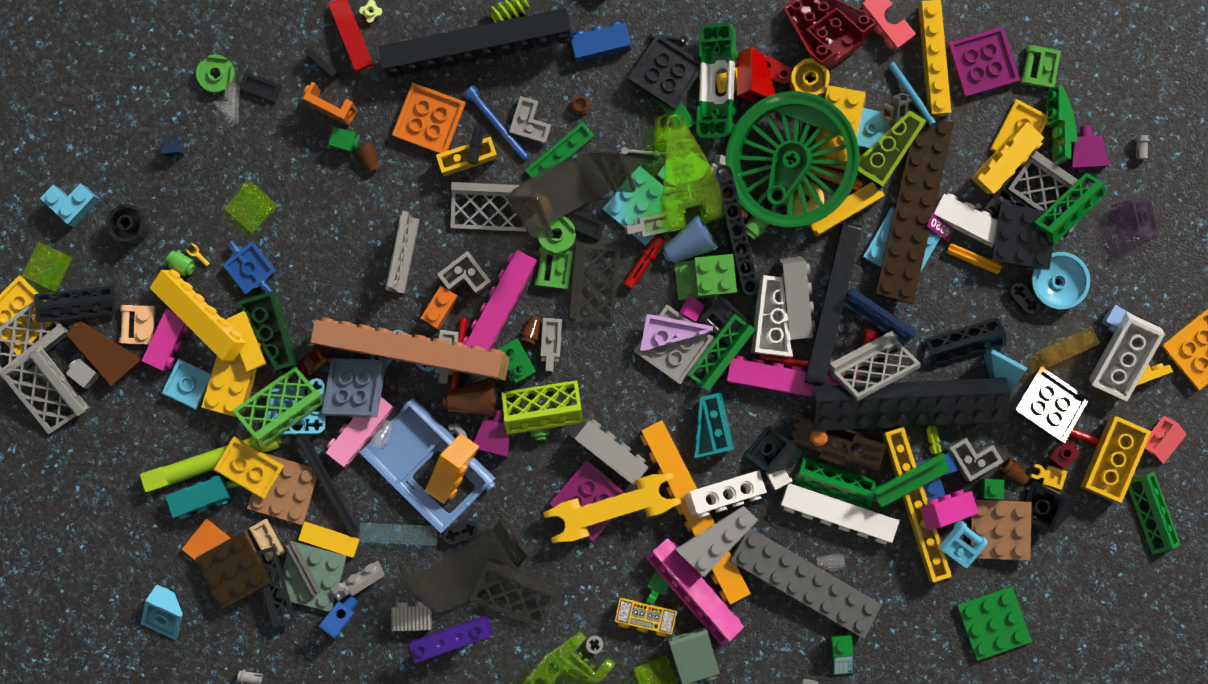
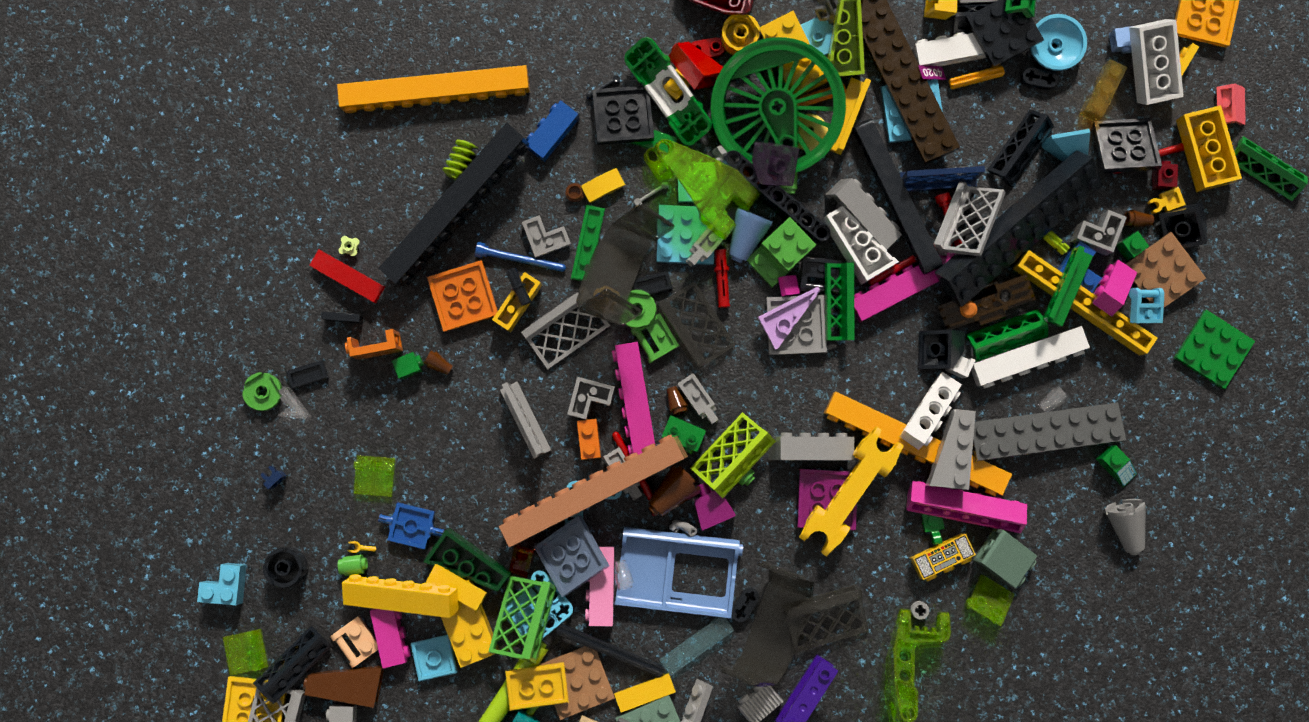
camera: 40 degrees left, 0 degrees up
(451, 468) = (699, 559): light orange wedge -> none
(607, 115) = (603, 185): none -> yellow slope
(713, 427) = (880, 367): teal wedge -> none
(754, 202) = (775, 163): none -> clear purple slope

